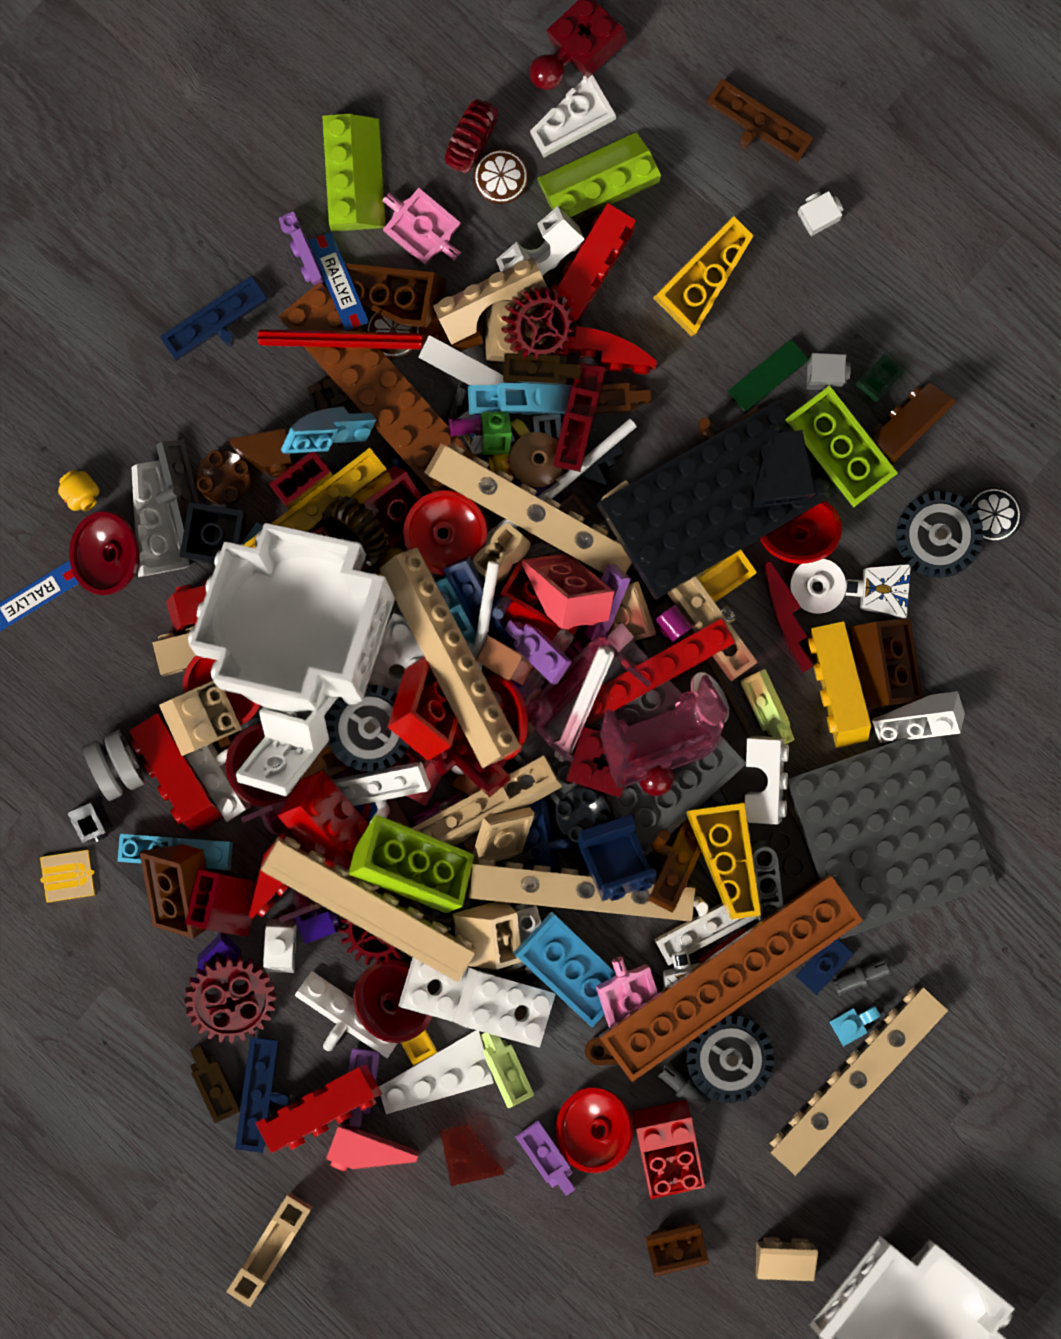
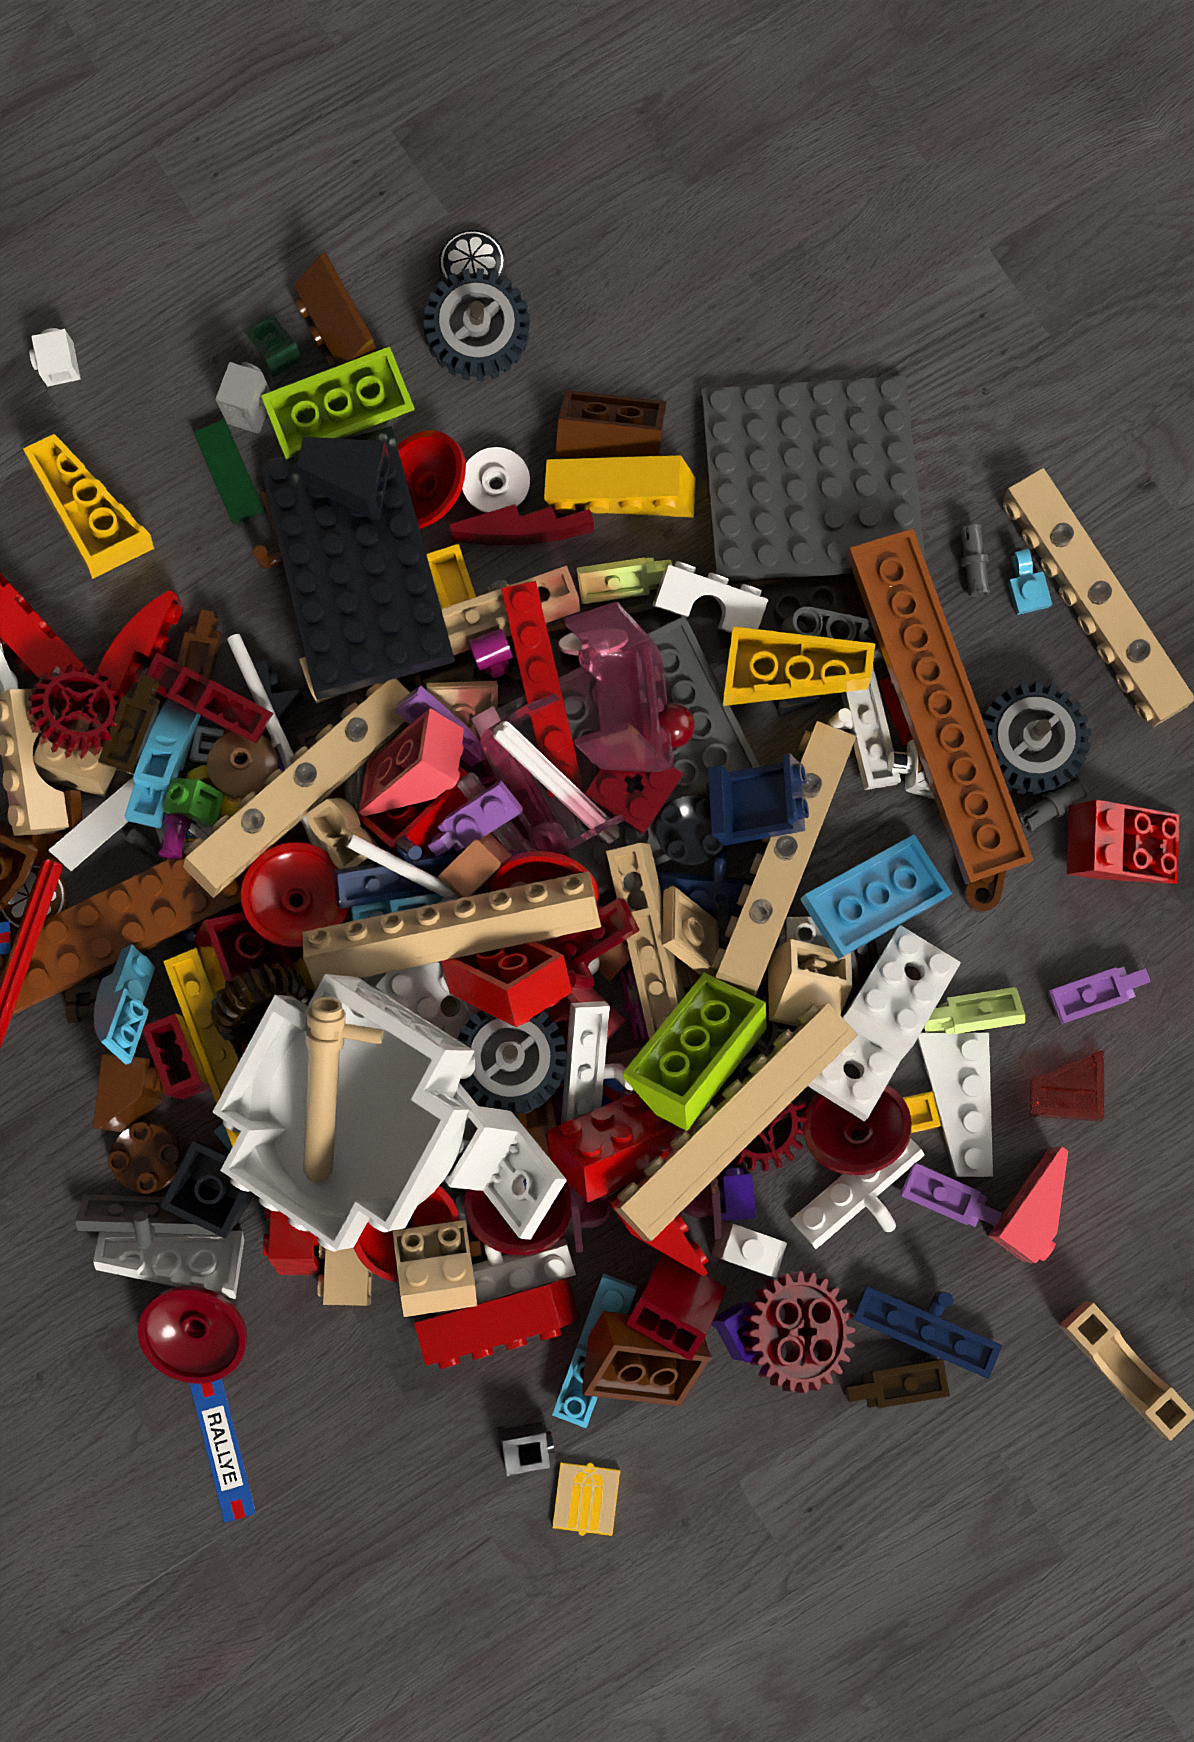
camera: 70 degrees left, 5 degrees down
(78, 490) = (104, 1345): yellow head -> none
(117, 763) = (464, 1403): light grey wheel -> none
(320, 1109) = (968, 1256): red wedge -> none
(335, 591) = (324, 1041): none -> tan cylinder
(580, 1130) = (1084, 944): red dish -> none
(625, 991) = (921, 838): bright pink plate -> none
(677, 867) = (784, 732): reddish brown plate -> none
(824, 966) = (956, 604): dark blue plate -> none
(882, 590) = (524, 407): torso -> none
(924, 718) = (688, 404): white slope -> none

